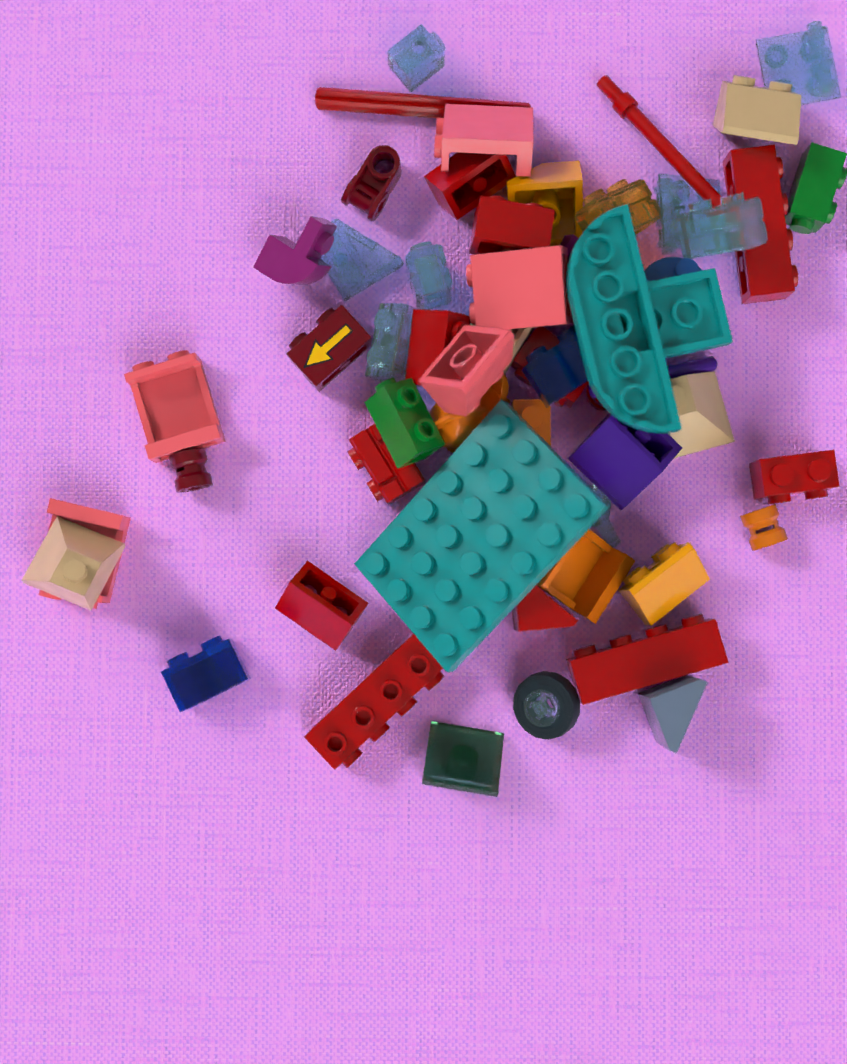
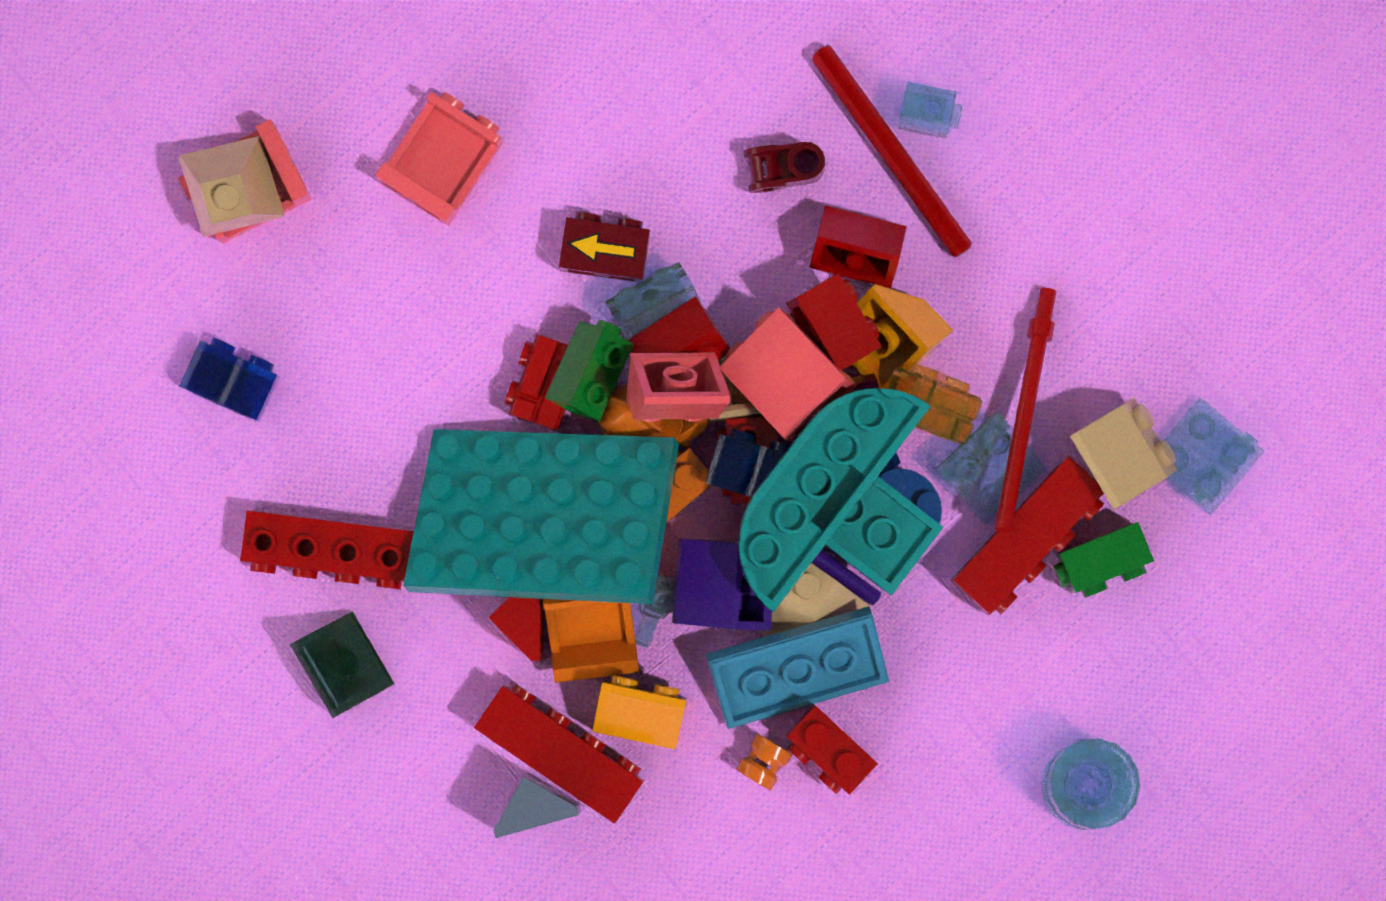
camera: 45 degrees right, 0 degrees up
(190, 470) = (396, 218): dark red wheel -> none
(300, 262) = (652, 157): magenta brick -> none
(321, 605) = (372, 431): red brick -> none
(357, 261) = (702, 200): clear light blue wing -> none
(428, 276) = (736, 284): clear light blue brick -> none
(486, 131) = (905, 229): coral panel -> none
(535, 713) = (433, 696): black wheel -> none
(720, 451) = (798, 667): none -> dark azure tile
(722, 227) = (986, 503): clear light blue brick -> none

